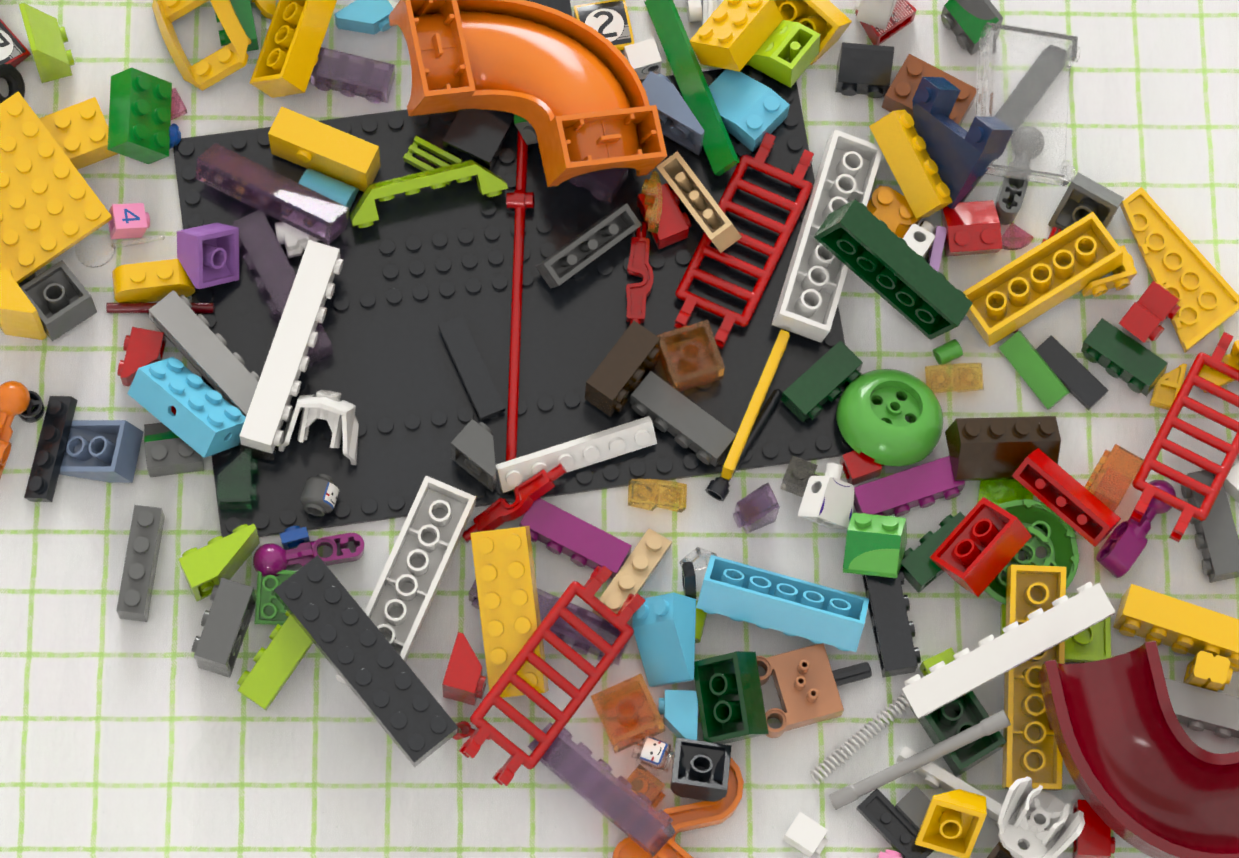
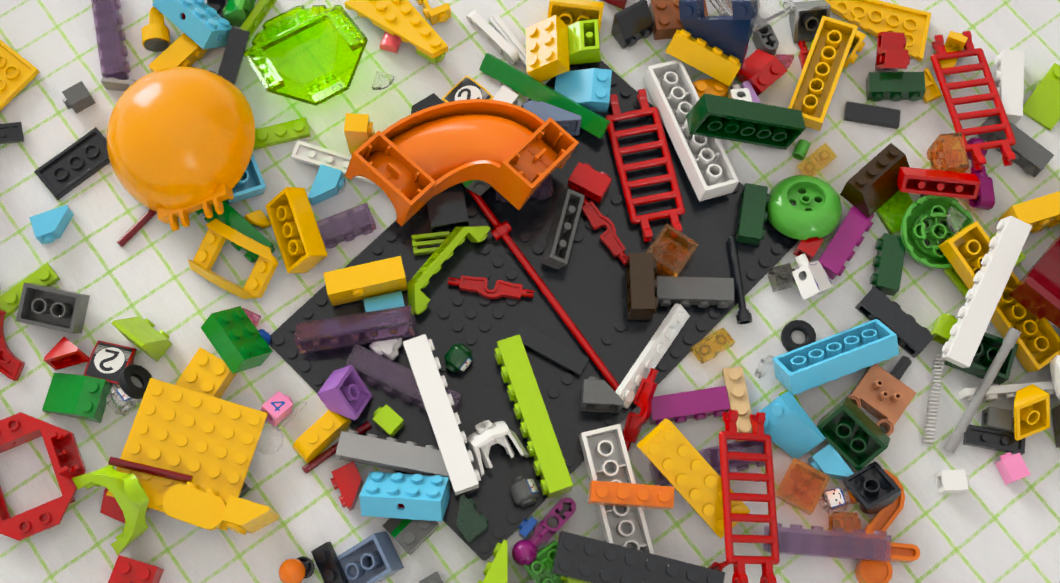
camera: 35 degrees left, 0 degrees up
(59, 300) = (272, 487): dark grey slope -> none
(233, 317) = (388, 420): none -> lime brick
(361, 304) = (458, 357): none -> dark green head
(389, 424) = (534, 417): none -> lime brick
(424, 576) = (631, 495): none -> orange brick
(464, 674) = (692, 534): red slope -> none
(469, 264) = (501, 289): none -> red piece
(654, 199) = (582, 174): clear yellow slope -> none
(689, 579) = (771, 382): black tile -> none
(699, 202) = (609, 160): tan brick -> none
(755, 405) = (728, 253): yellow tile -> none
(756, 509) = (776, 312): clear purple slope -> none
(770, 541) = (800, 325): none -> black tyre
(875, 545) = (857, 285): bright green slope -> none
(981, 546) = (917, 243): red slope -> none
(1034, 370) = (854, 126): bright green tile -> none
(1052, 552) = (954, 219): none -> clear tile

